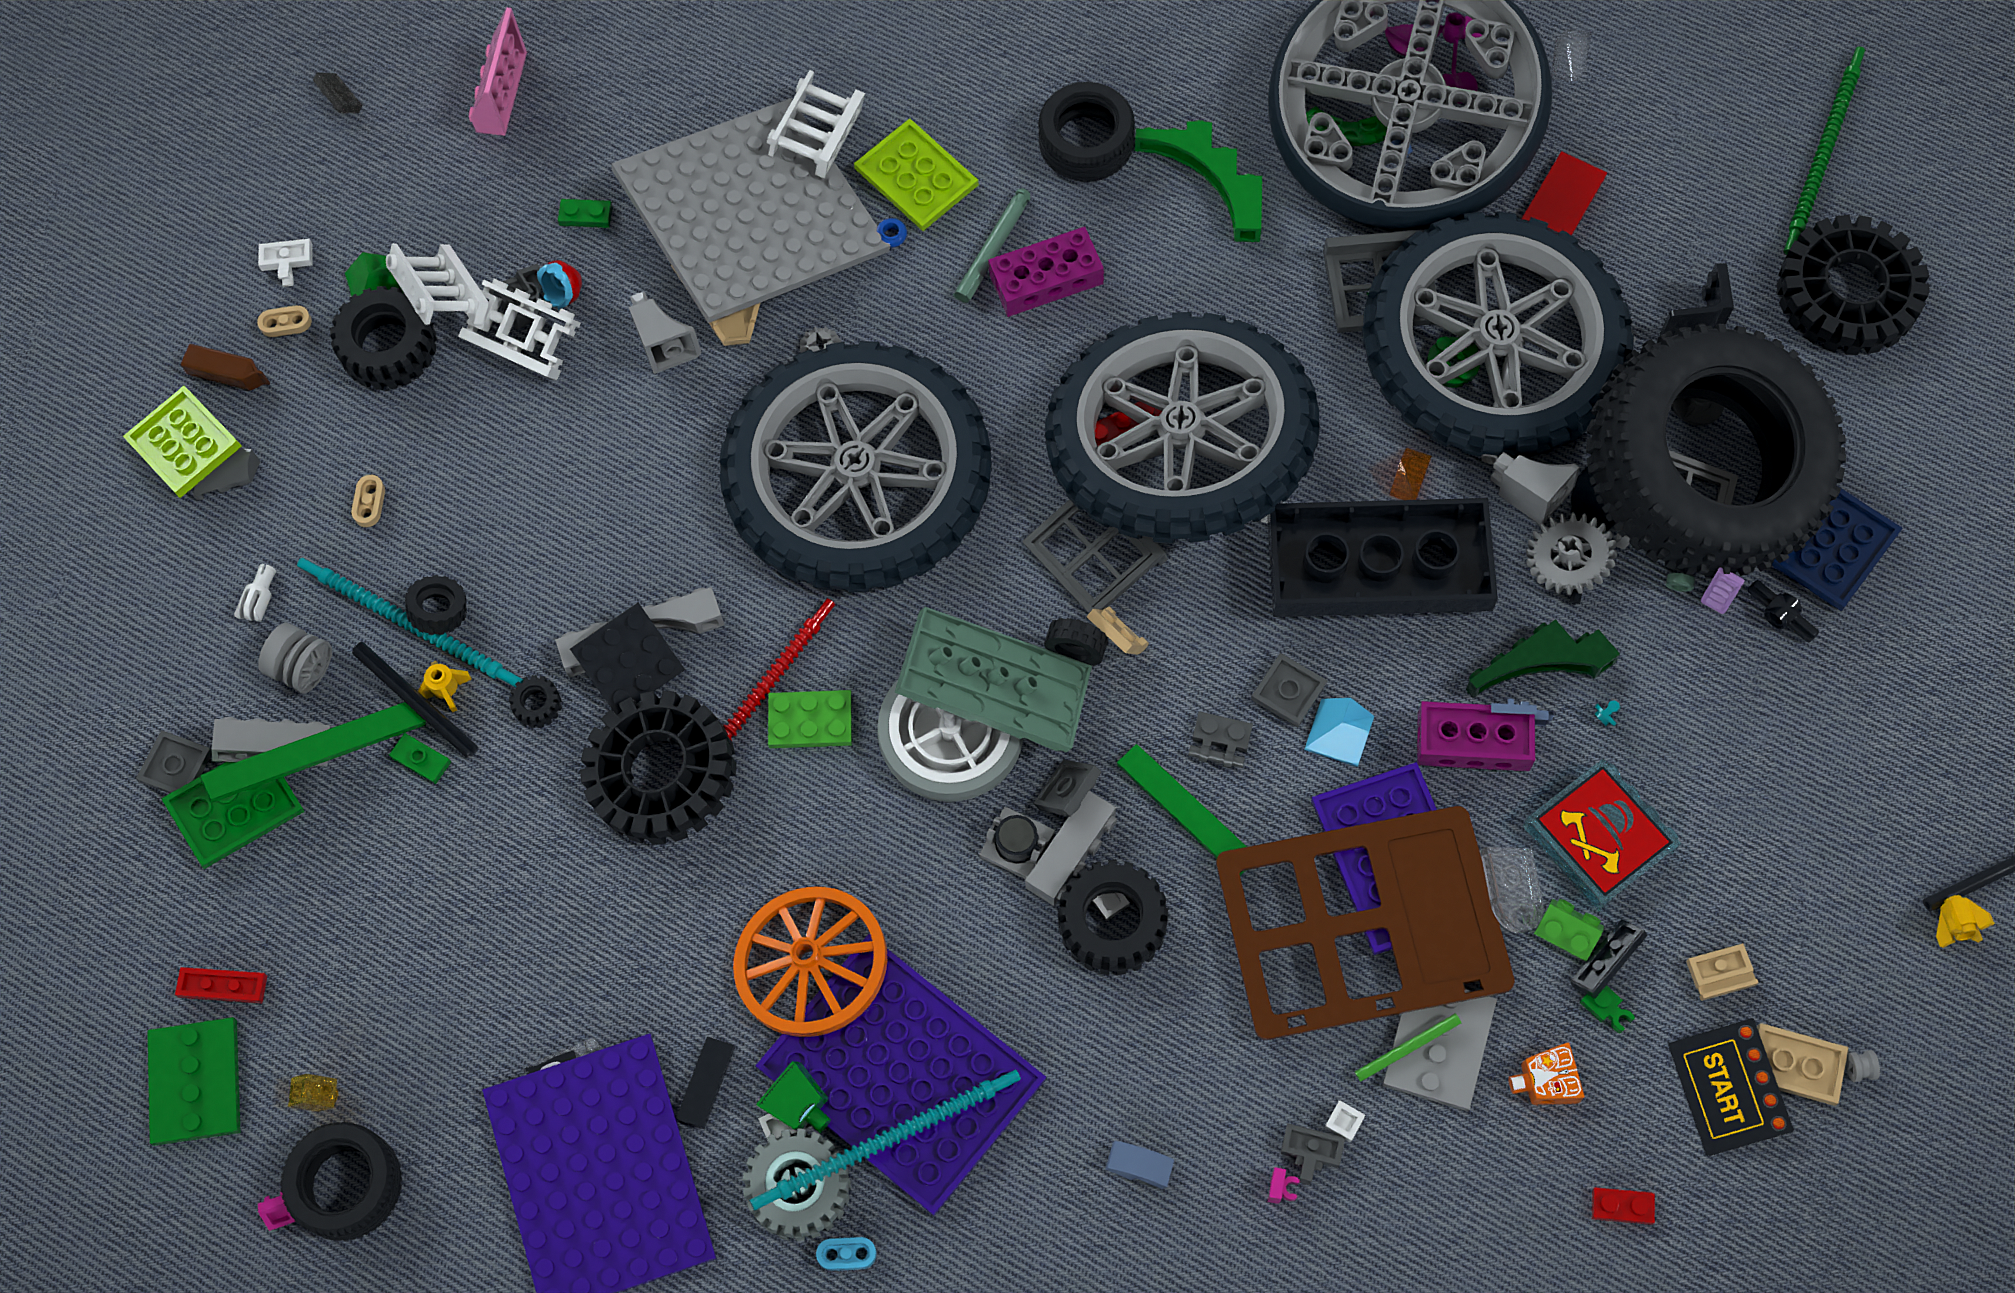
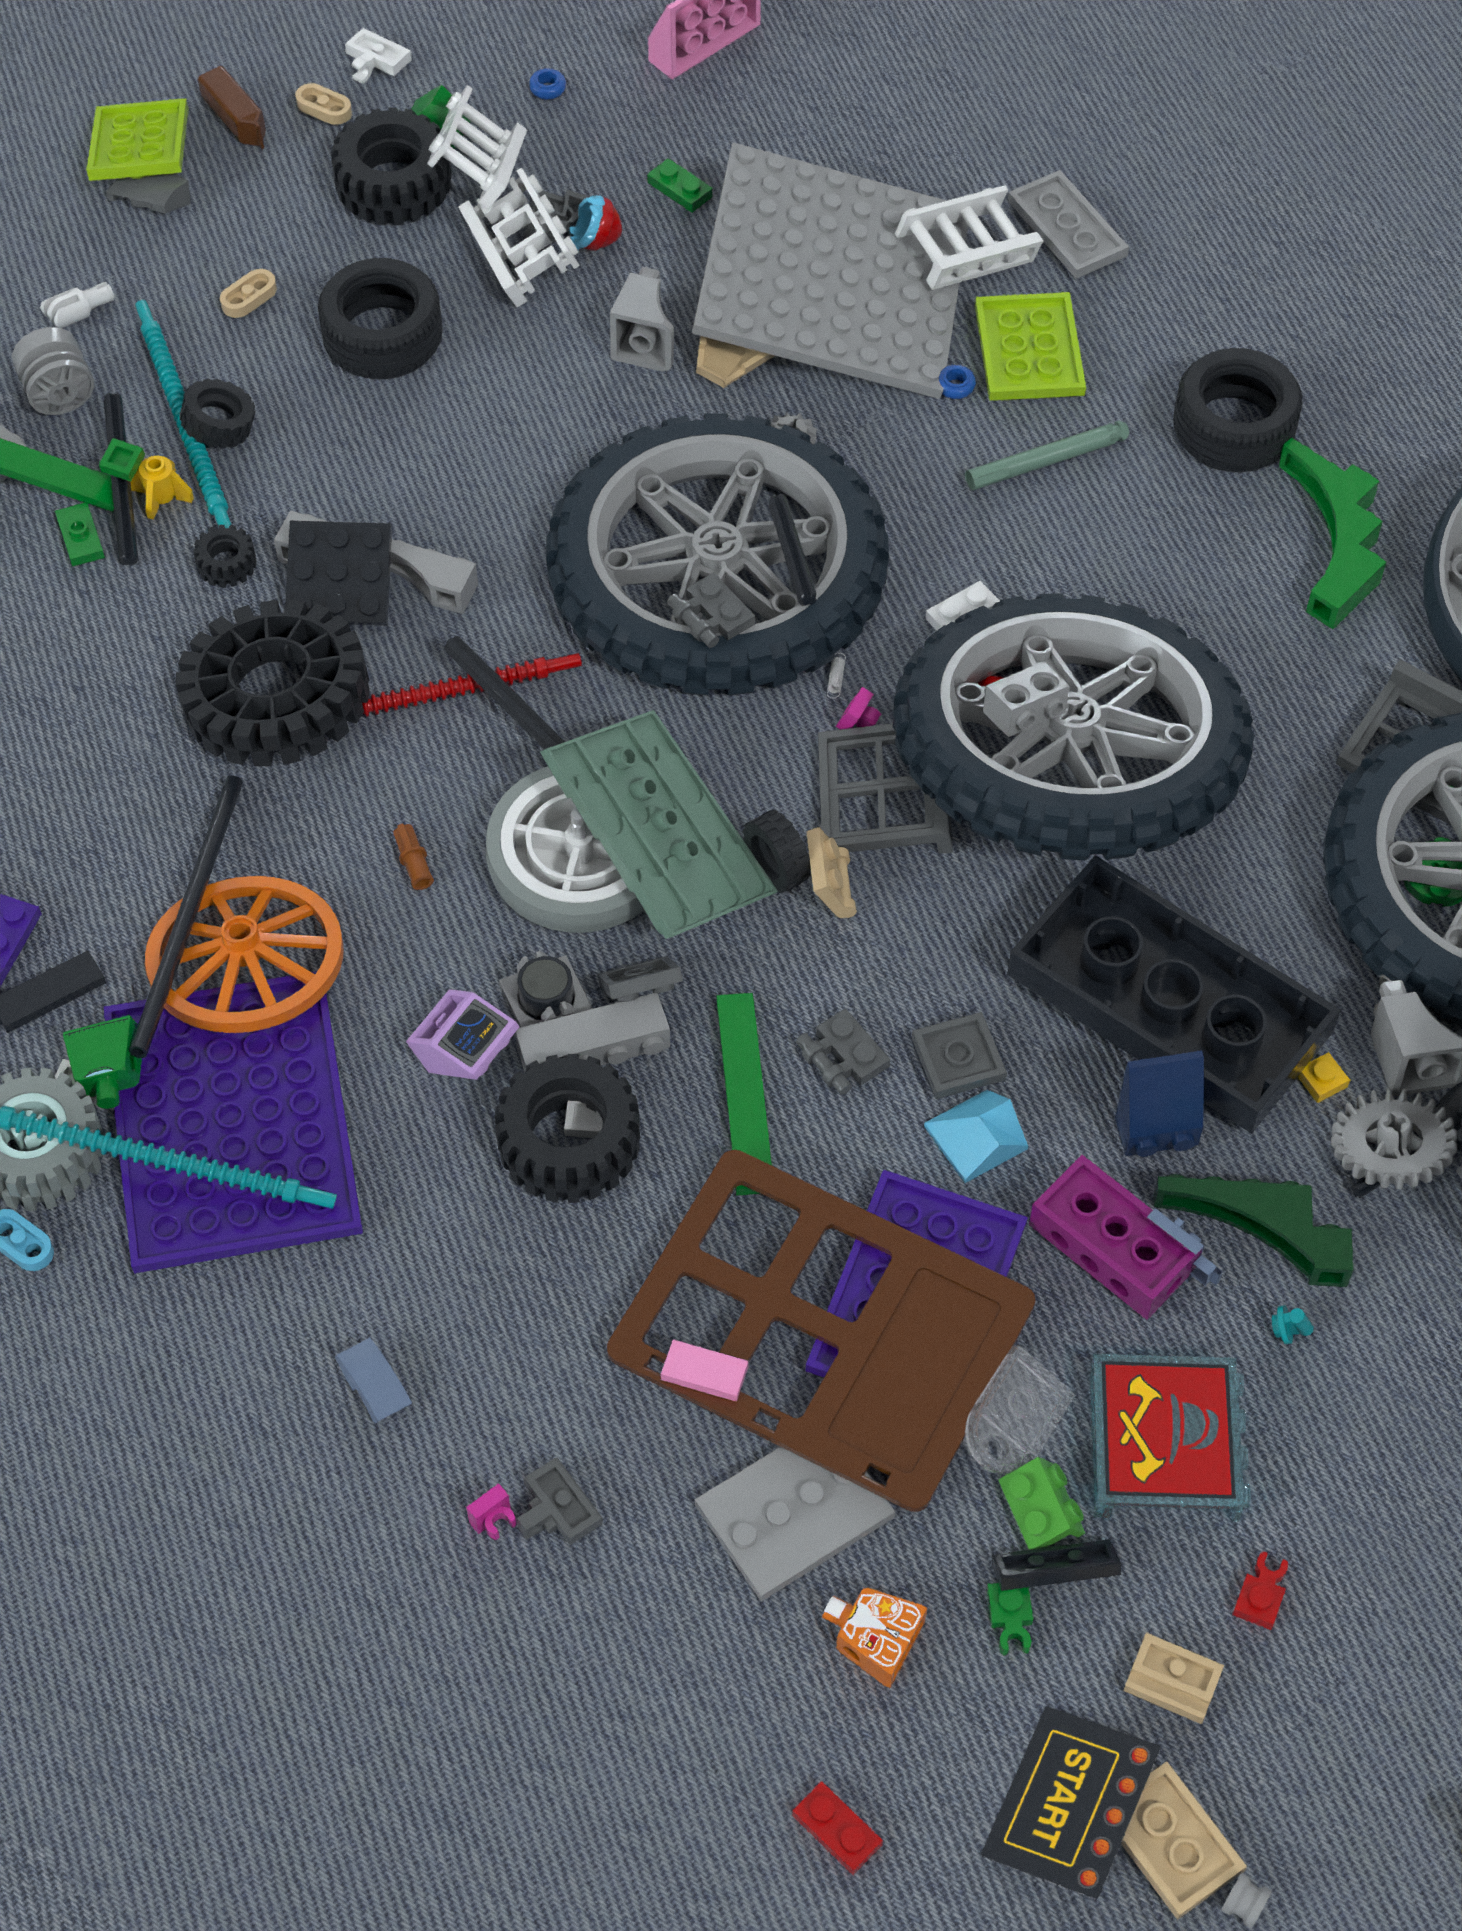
camera: 35 degrees right, 10 degrees down
(411, 688) = (122, 459): none -> green plate
(431, 204) = (547, 91): none -> blue piece
(463, 428) = (375, 285): none -> black tyre
(754, 966) = (185, 918): none -> black piece
(810, 719) = (459, 748): bright green plate -> none
(822, 665) = (501, 693): none -> black axle
(850, 814) = (413, 857): none -> dark orange axle
(864, 67) = (1068, 224): none -> light grey plate
(902, 505) = (718, 604): none -> dark grey plate
(914, 432) = (792, 550): none -> black axle
(998, 494) = (836, 675): none -> white piece
(998, 909) = (461, 1035): none -> lavender slope
(1035, 391) = (959, 604): none -> white plate
(1035, 510) = (859, 712): none -> dark pink tile
(1046, 271) = (1076, 509): magenta brick -> none
(1156, 427) = (1026, 699): none -> light grey brick
(1327, 1003) = (704, 1370): none -> bright pink tile
(1345, 1121) = (619, 1504): white plate -> none
(1408, 1047) = (751, 1481): bright green bar -> none
(1410, 474) = (1289, 943): clear orange slope -> none
(1438, 636) = (1161, 1104): none -> dark blue slope
(1502, 543) = (1323, 1077): none -> yellow plate
(1723, 887) = (1260, 1595): none -> red plate

